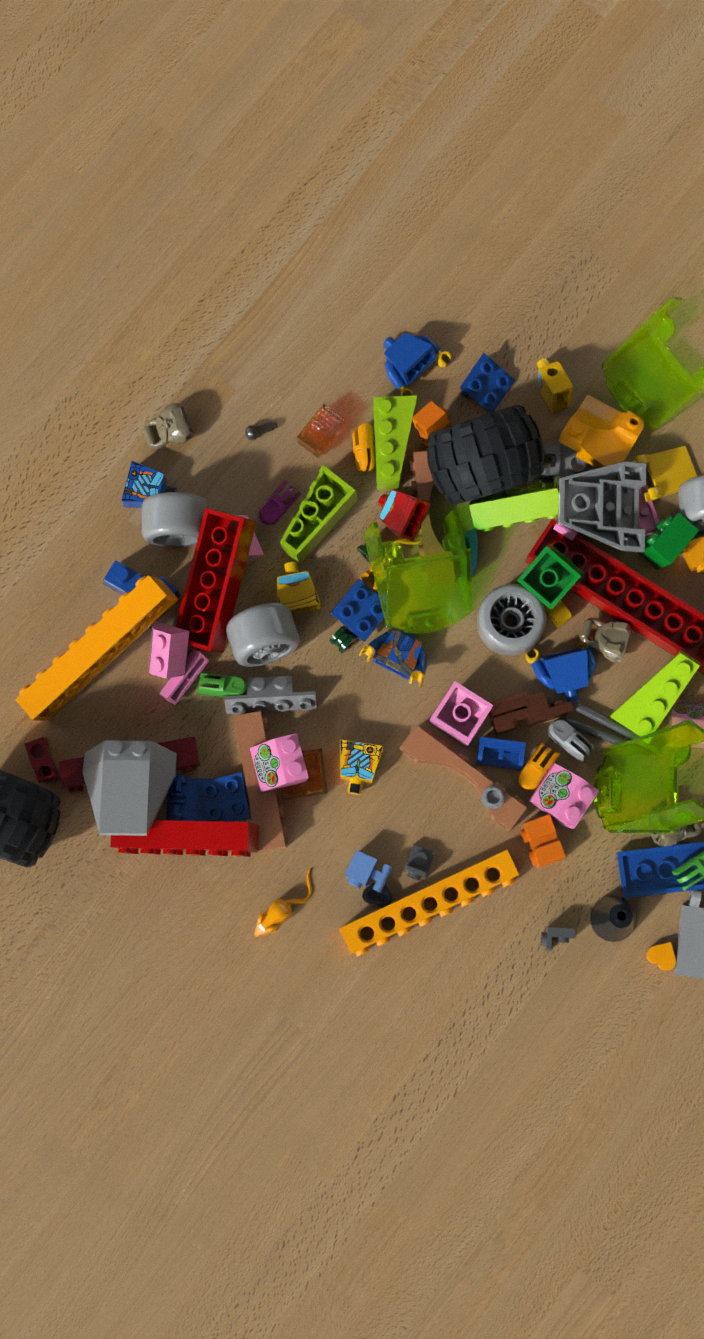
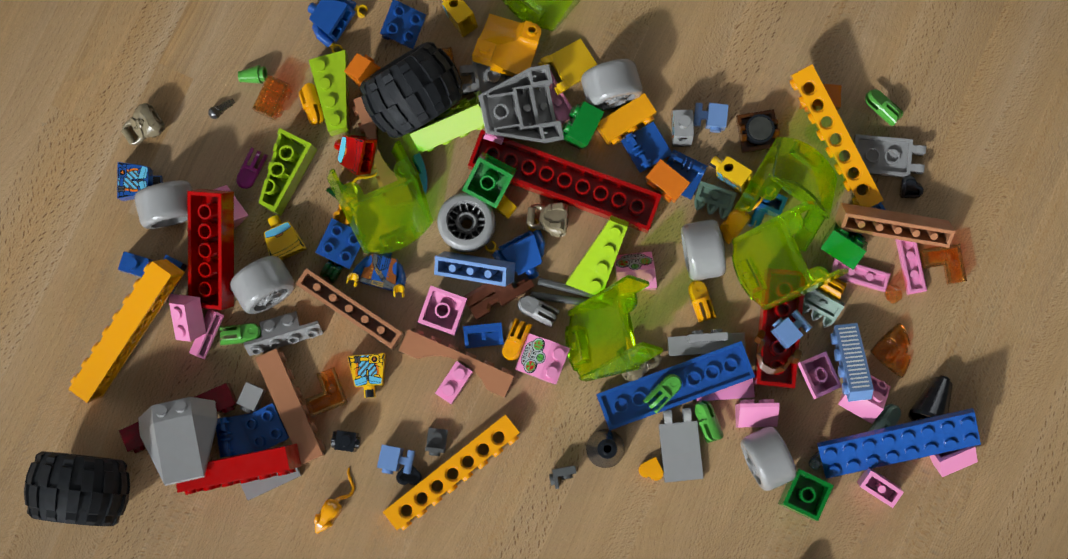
camera: 15 degrees left, 5 degrees up
(41, 759) = (104, 431): dark red leg -> none
(209, 864) = (259, 487): none -> light grey tile
(217, 761) = (251, 397): none -> light grey brick
(279, 763) = (300, 389): bright pink slope -> none
(305, 401) = (253, 75): none -> bright green cone
(314, 836) = (345, 441): none -> black brick
(354, 687) = (349, 309): none -> nougat brick
(455, 799) = (454, 382): none -> bright pink brick
(492, 797) = (483, 374): light grey plate -> none
(509, 673) = (474, 268): none -> medium blue brick
(542, 841) = (533, 399): orange brick -> none

